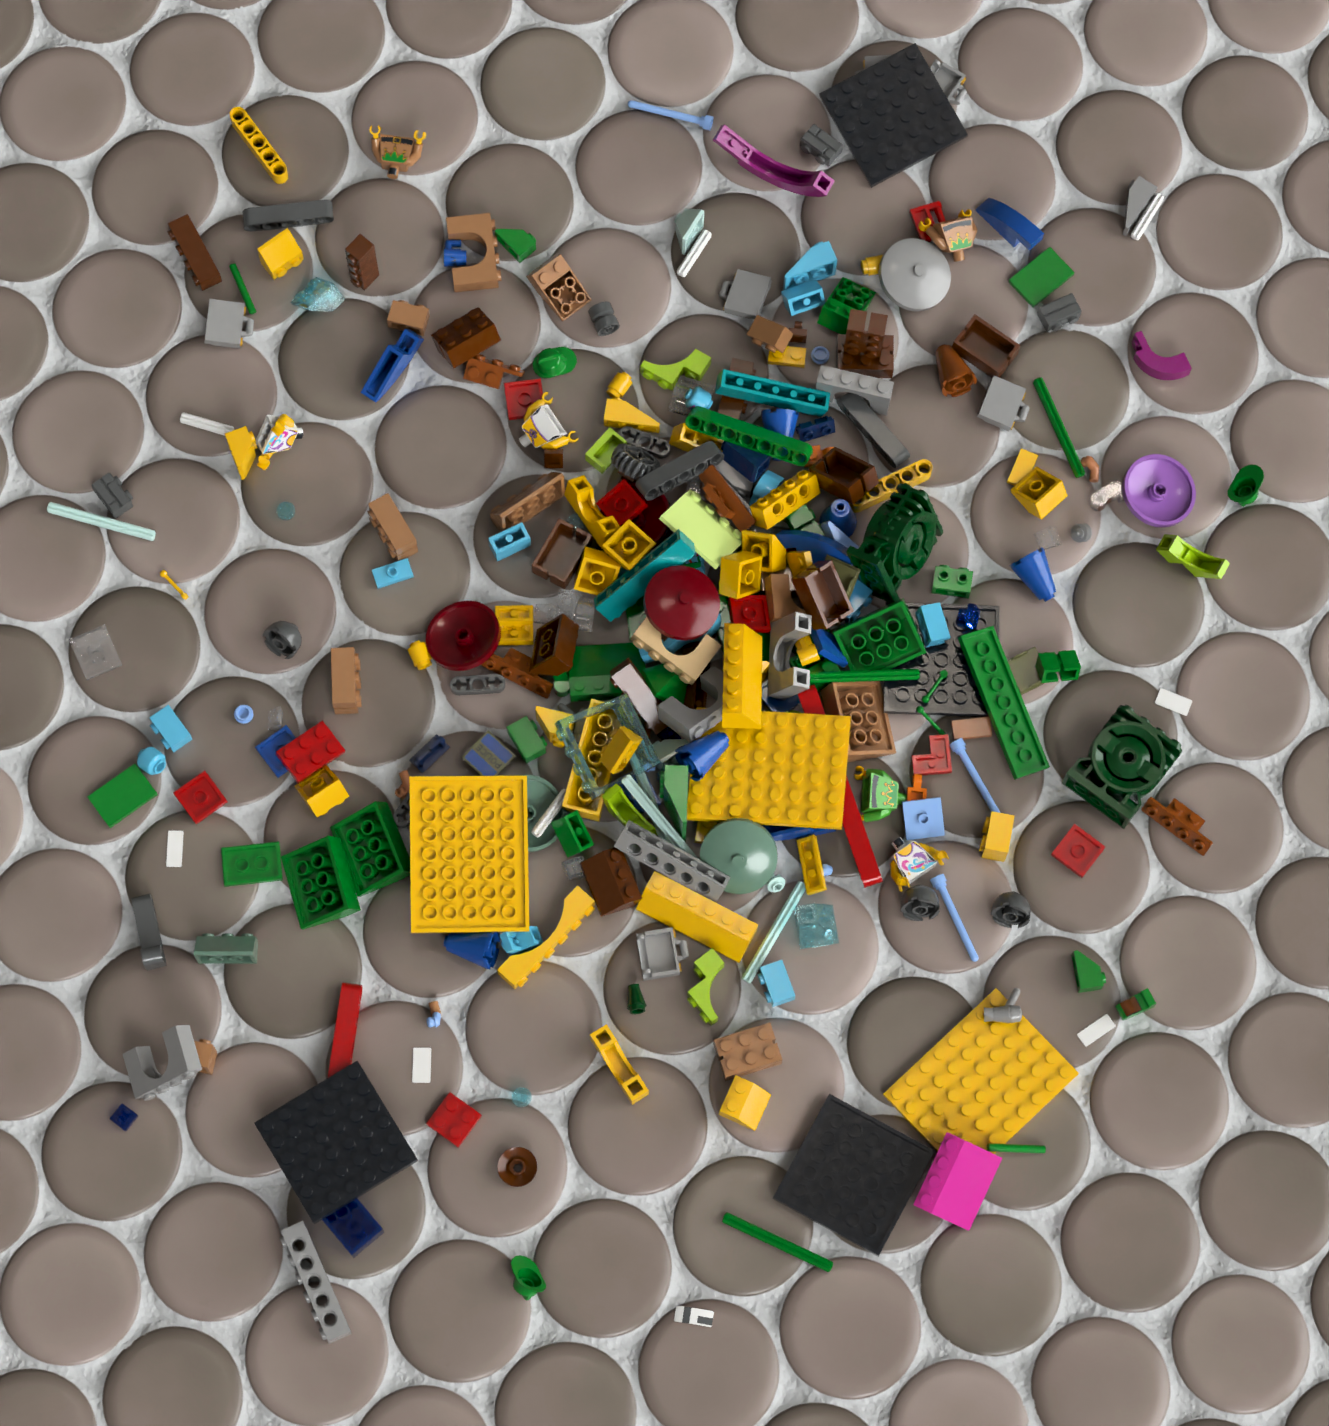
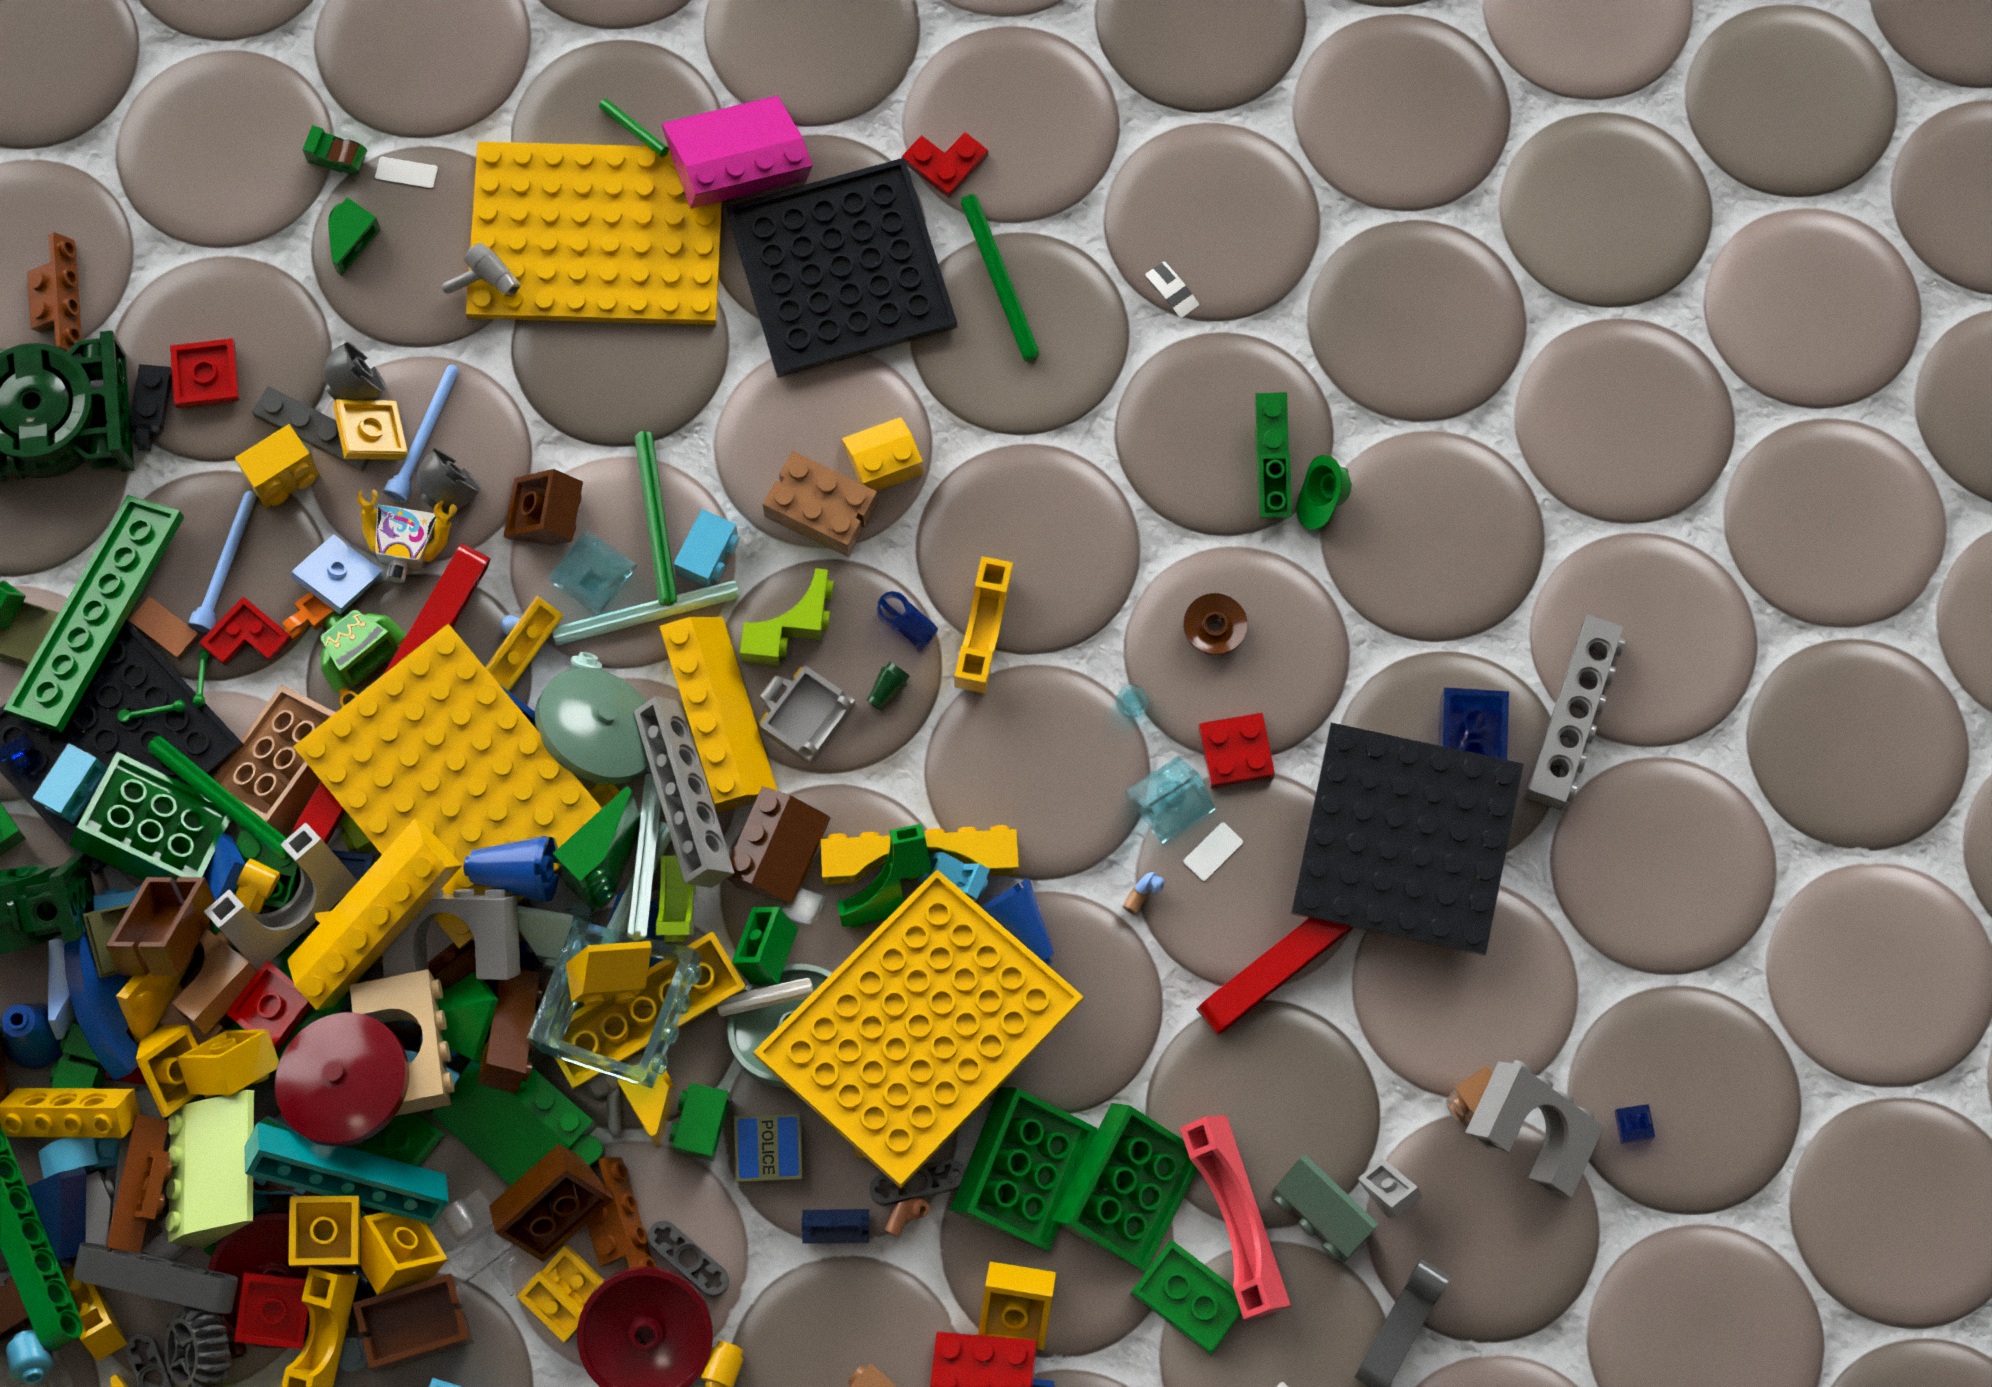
camera: 135 degrees left, 0 degrees up
(206, 985) = (1389, 1188): none -> light grey slope
(294, 928) = (1256, 1273): none -> coral arch
(462, 1069) = (1171, 798): none -> clear light blue slope
(544, 906) = (906, 859): none -> green arch
(566, 1273) = (1272, 455): none -> green slope
(654, 1039) = (911, 624): none -> clear blue piece
(814, 976) = (655, 518): none -> green axle
(856, 1271) = (947, 169): none -> red plate
(866, 932) = (543, 508): none -> reddish brown slope
(977, 892) = (370, 429): none -> yellow plate
(1004, 874) = (307, 423): none -> dark grey plate
(1086, 815) = (150, 403): none -> black hinge

